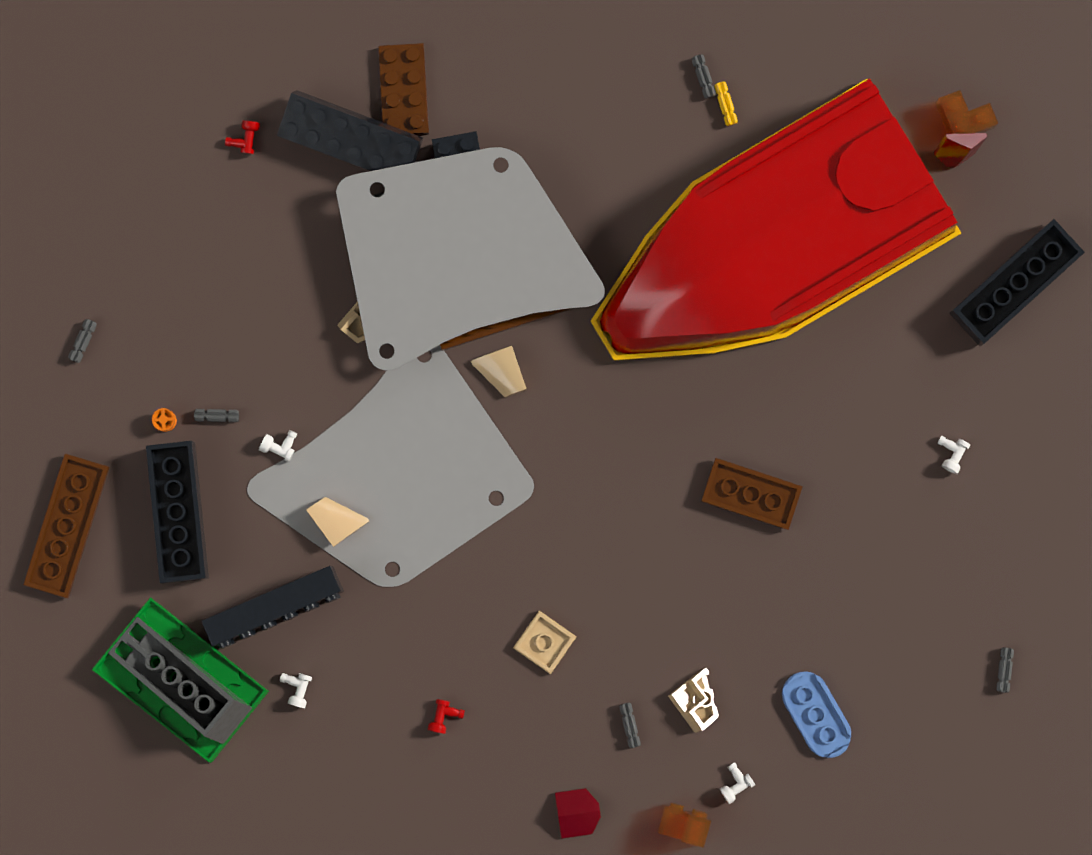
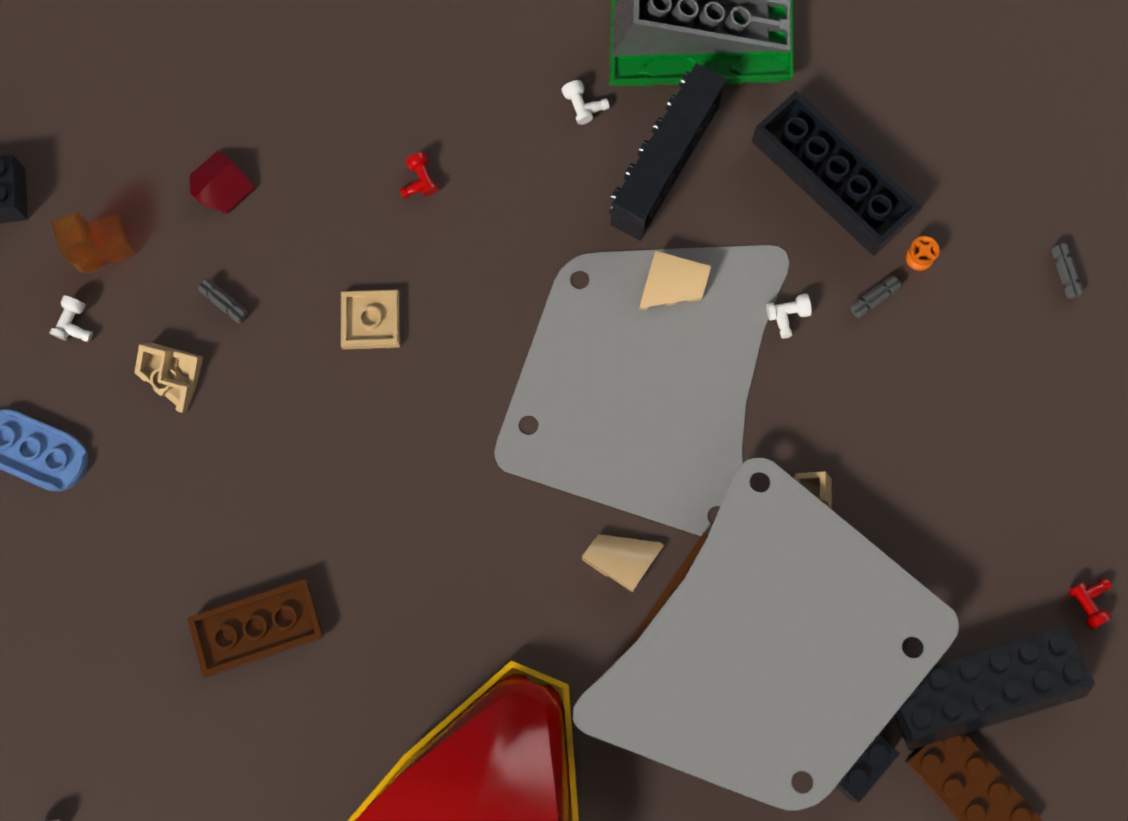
camera: 145 degrees right, 10 degrees down
(66, 526) = (928, 90): reddish brown plate -> none

